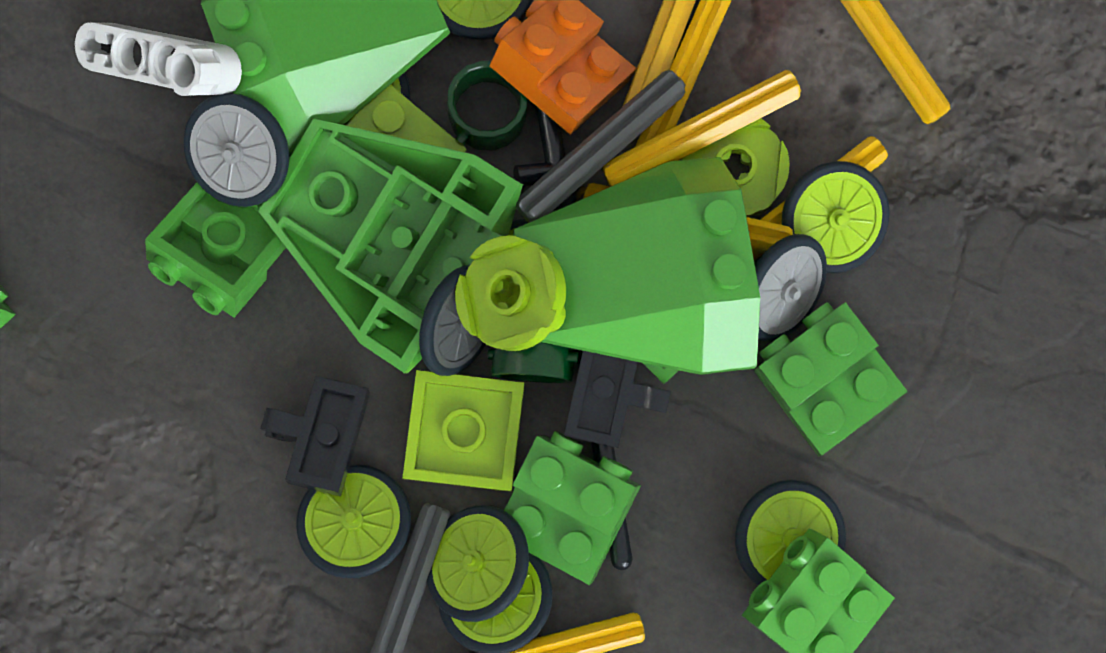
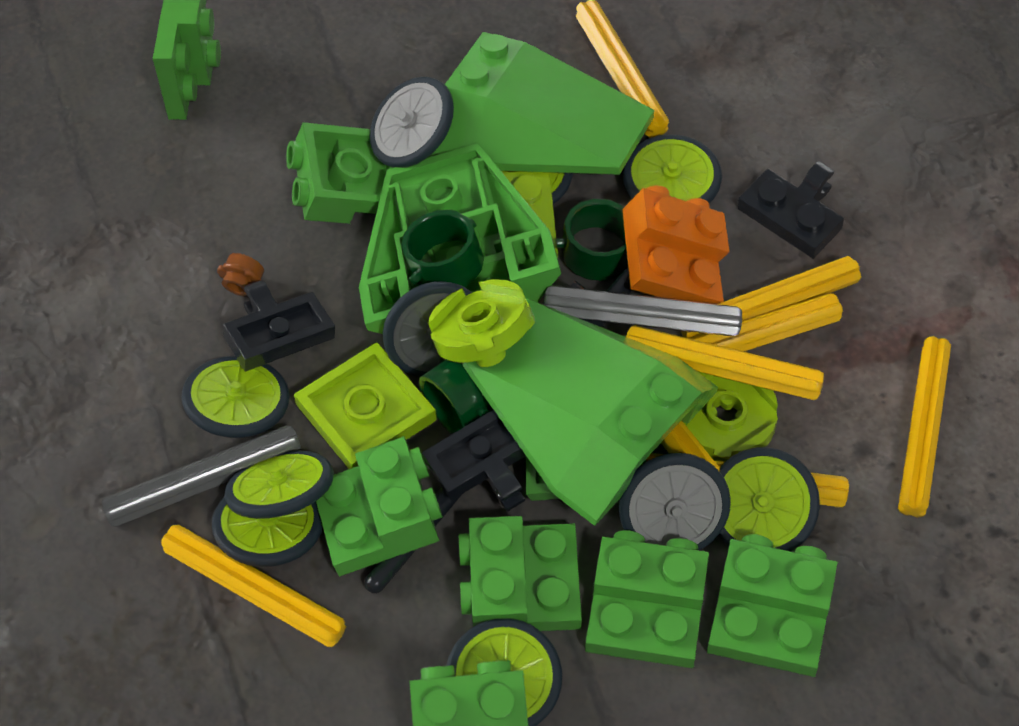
camera: 45 degrees right, 25 degrees down
(191, 70) = (425, 41): white beam -> none
(237, 415) = (239, 272): none -> dark orange plate
(365, 245) = (436, 229): none -> dark green piece
(722, 449) = (521, 573): none -> bright green plate
(917, 292) = (773, 605): none -> bright green plate

